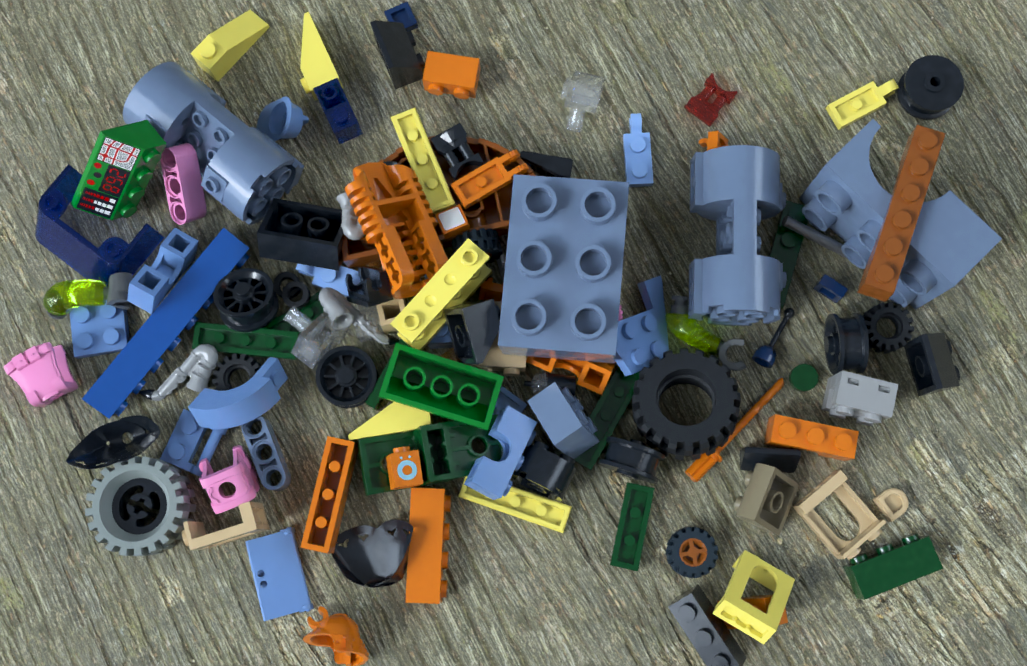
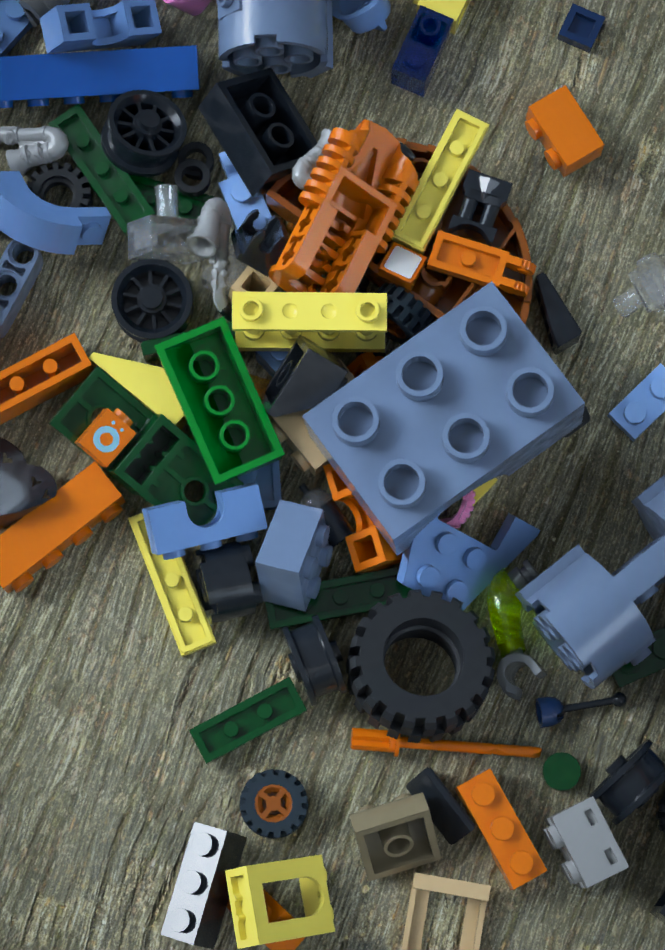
camera: 45 degrees right, 0 degrees up
(398, 52) = (538, 55): black slope -> none

